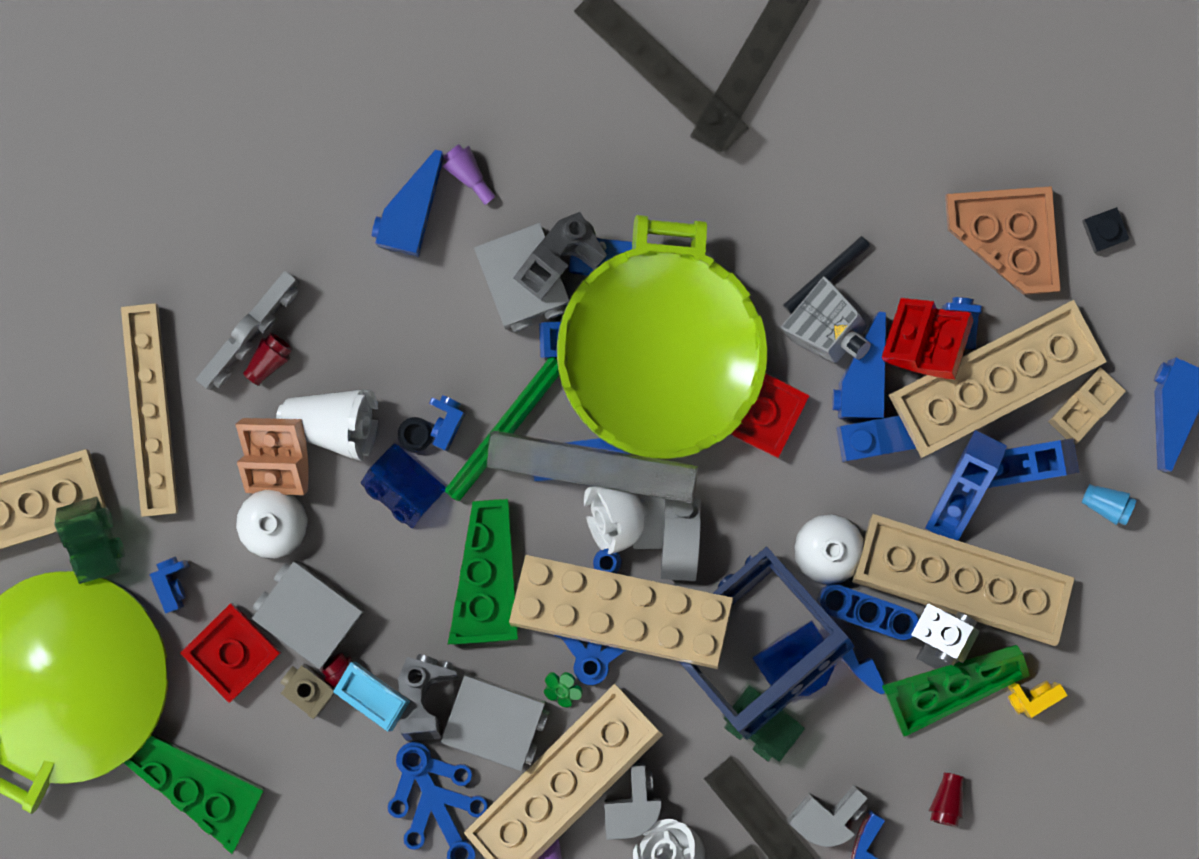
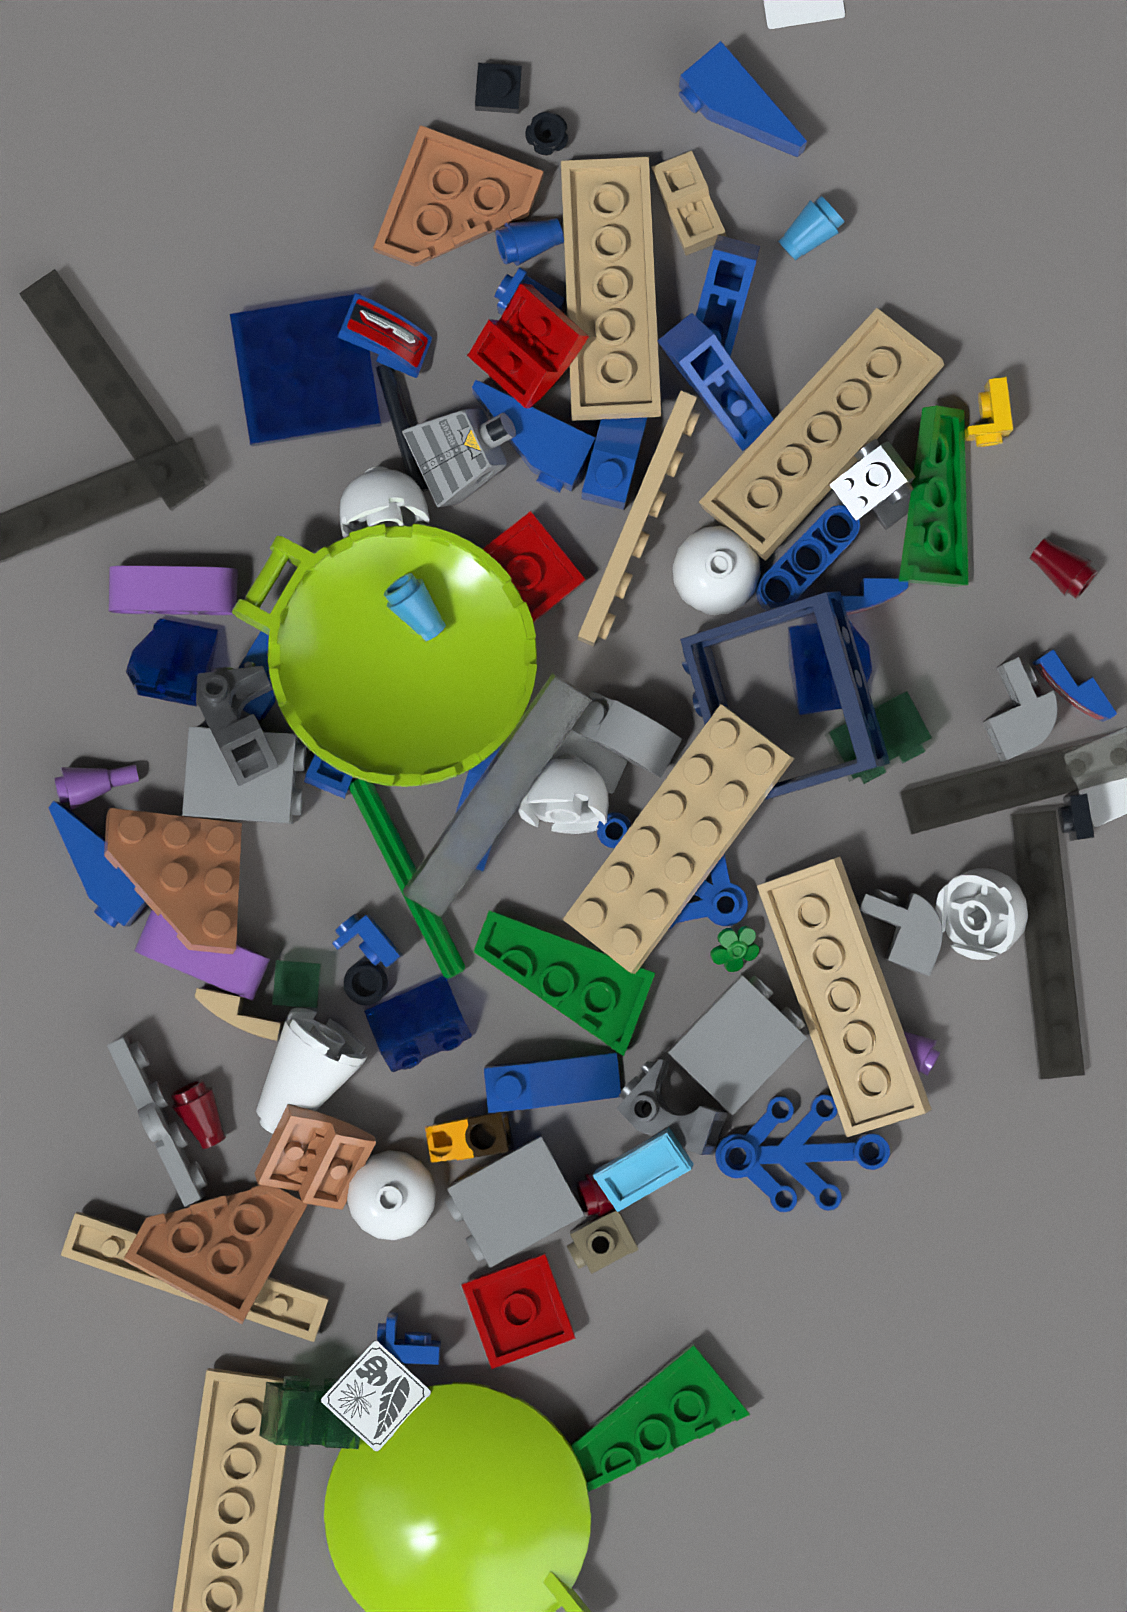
camera: 70 degrees left, 0 degrees up
(122, 579) = (375, 1396): none -> white sticker
(177, 417) = (219, 1246): none -> nougat plate
(338, 560) = (469, 1137): none -> leg
(351, 344) = (229, 1008): none -> tan slope
(381, 308) = (233, 972): none -> medium lavender beam
(391, 385) = (297, 983): none -> clear green plate
(404, 601) = (551, 1082): none -> blue slope
(433, 266) = (181, 871): none -> nougat plate
(581, 187) = (169, 661): none -> clear blue slope
(632, 165) = (172, 590): none -> medium lavender beam
(701, 344) = (414, 605): none -> dark azure cone
(768, 285) = (382, 498): none -> white cylinder
(836, 186) = (300, 374): none -> clear blue plate
(854, 476) = (647, 502): none -> tan plate
(889, 232) = (387, 333): none -> slope
(1005, 302) = (525, 240): none -> blue cone
(1098, 280) = (542, 122): none -> black plate

